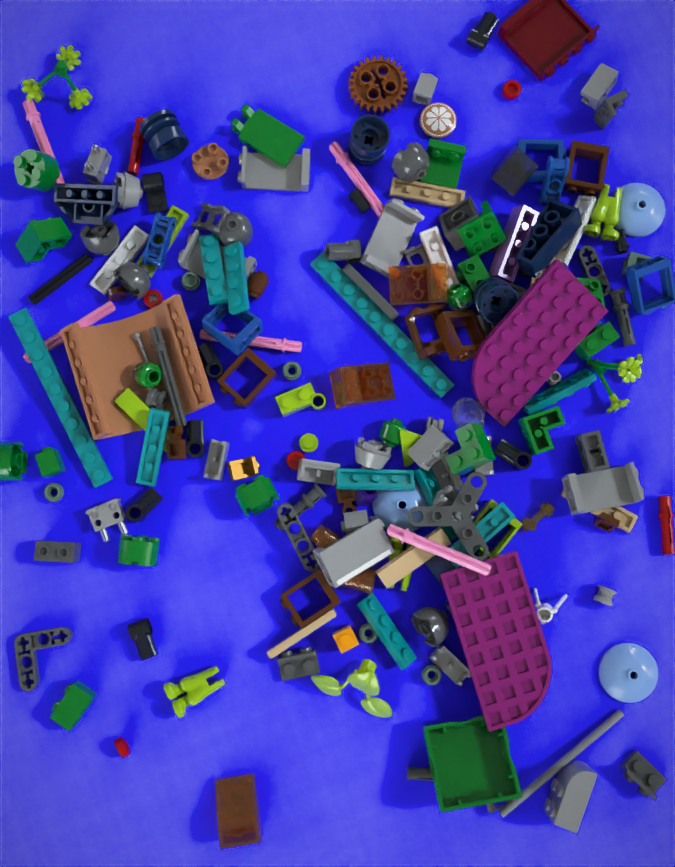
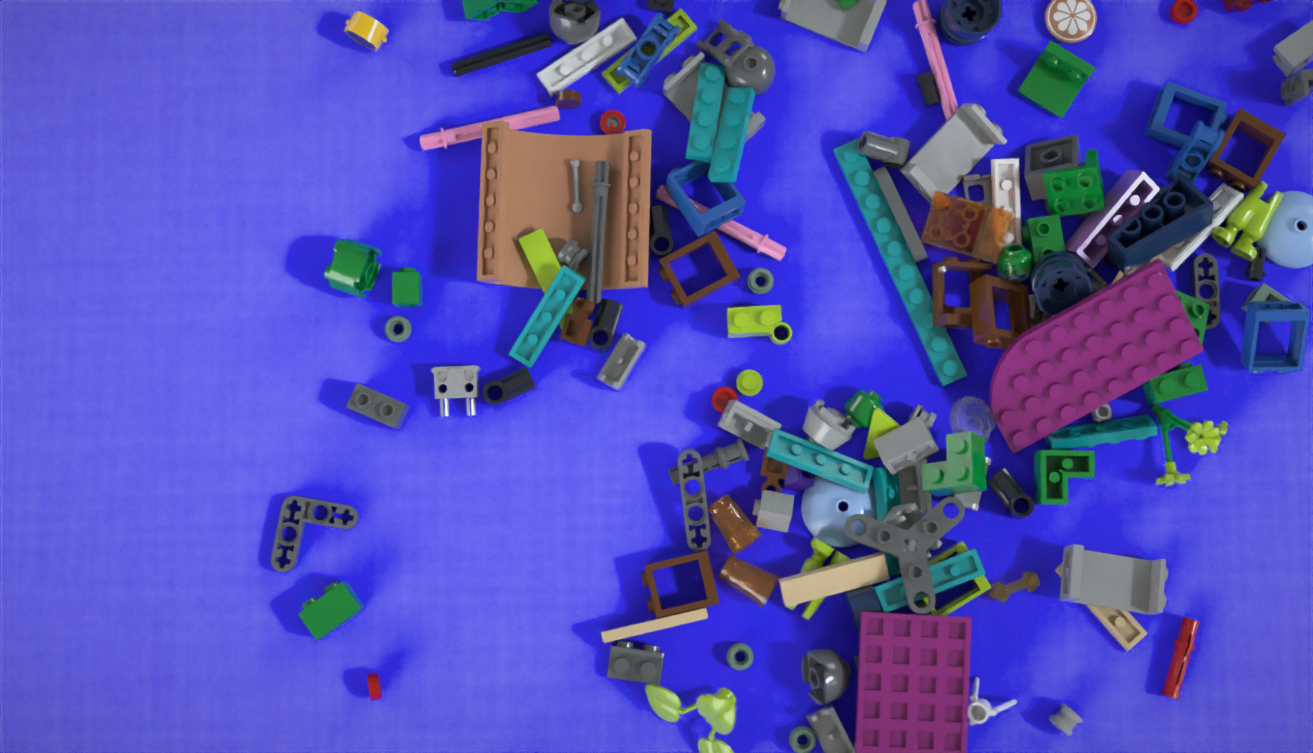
camera: 20 degrees right, 0 degrees up
(60, 397) = (450, 210): teal plate -> none
(134, 279) = (597, 89): dark grey cylinder -> none
(138, 550) = (483, 442): green brick -> none
(141, 633) = (448, 549): black piece -> none
(147, 374) = (572, 219): green head -> none
(190, 281) = (669, 116): sand green plate -> none
(195, 687) = (494, 646): lime piece -> none
(243, 468) = (653, 385): pearl gold bracket -> none
(256, 495) = (658, 427): green brick -> none
(257, 284) = (755, 152): reddish brown brick -> none
(345, 638) = (708, 652): light orange brick -> none
(354, 552) = (759, 545): light grey panel -> none
(361, 385) = (845, 332): clear orange slope -> none
(387, 631) = (765, 662): teal plate -> none
(411, 163) = (1015, 64): dark grey cylinder -> none
(426, 193) = (1020, 109): tan tile -> none
(438, 549) = (870, 579): bright pink axle -> none
(513, 170) = (1146, 120): clear smoke slope -> none
(592, 451) = (1116, 526): dark grey brick -> none
(606, 522) = (1101, 625): reddish brown tile -> none
(621, 309) = (1224, 352): dark grey pin -> none

